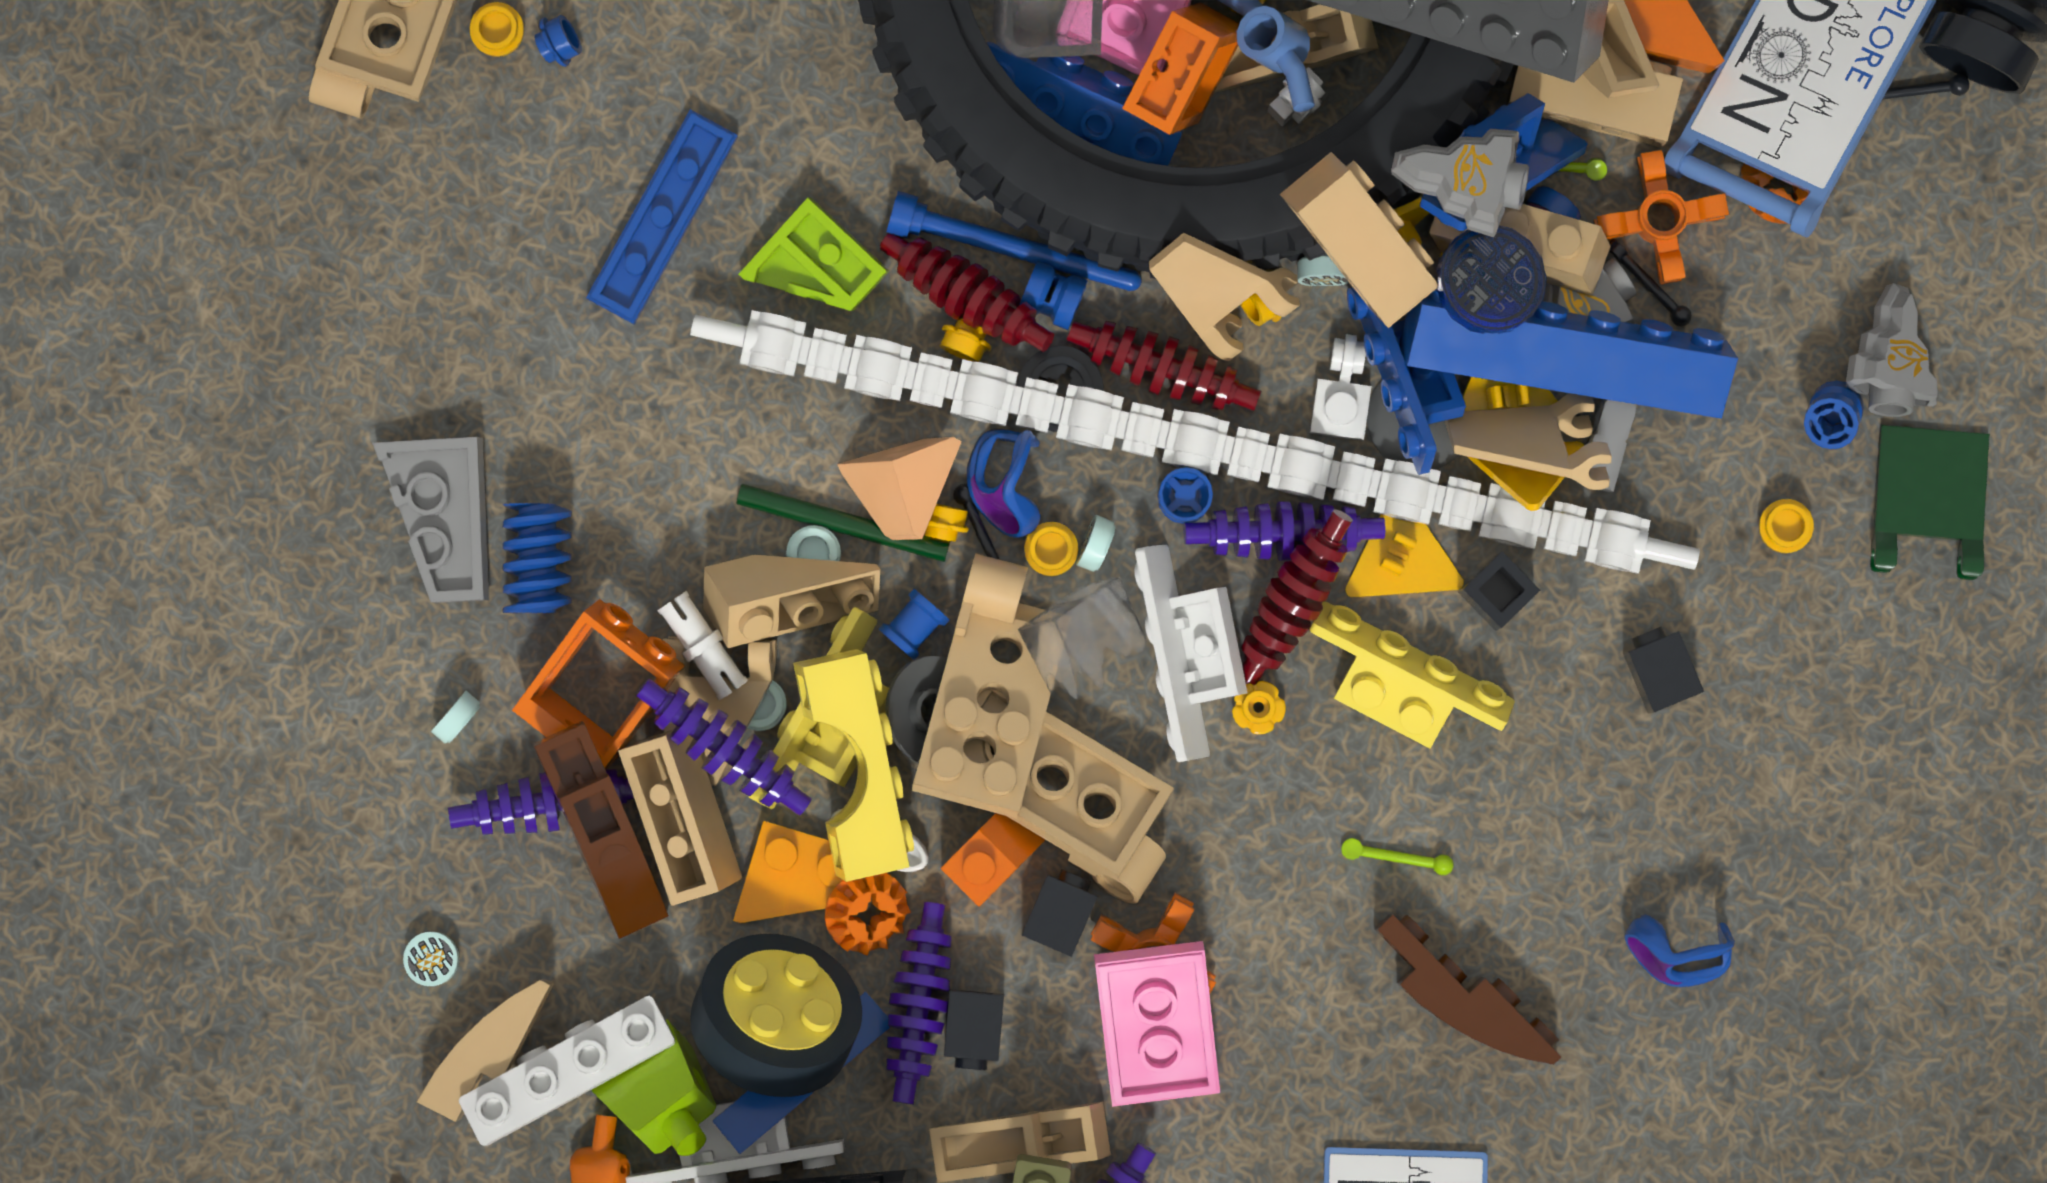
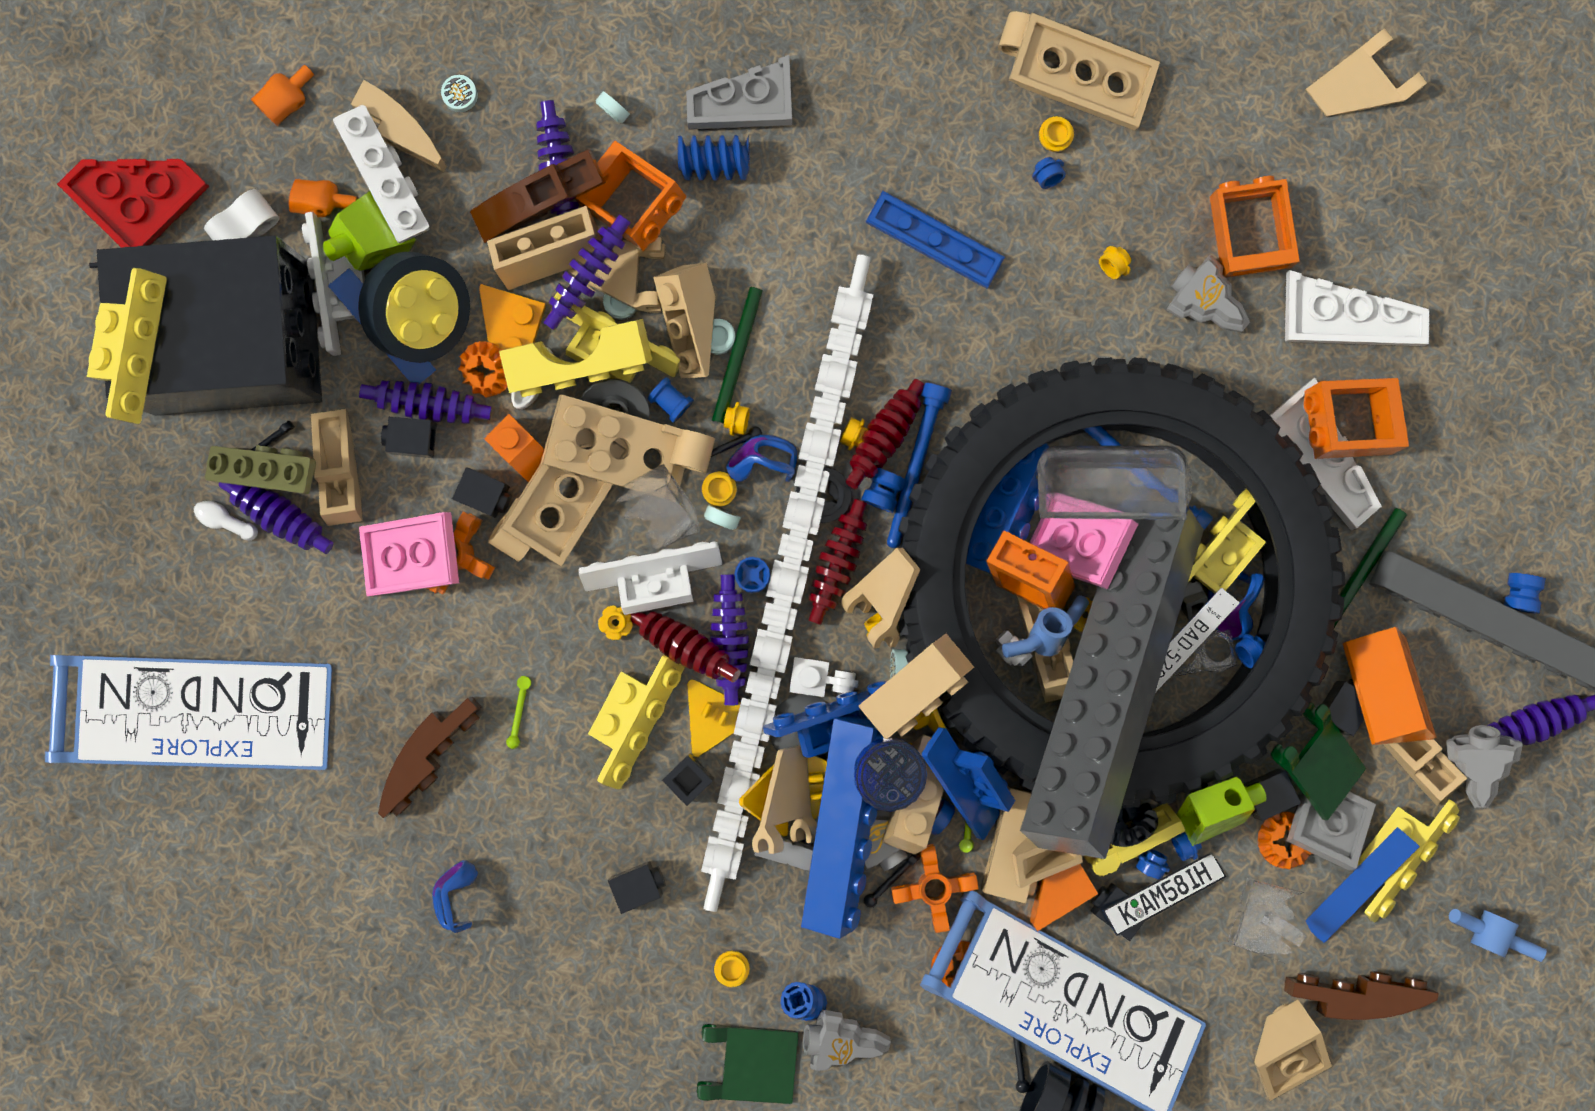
camera: 85 degrees right, 0 degrees up
(702, 645) = (655, 262): white pin -> none
(816, 260) = (906, 338): lime wing -> none
(902, 484) = (761, 392): light nougat slope -> none
(1469, 177) = (957, 760): light grey rock -> none

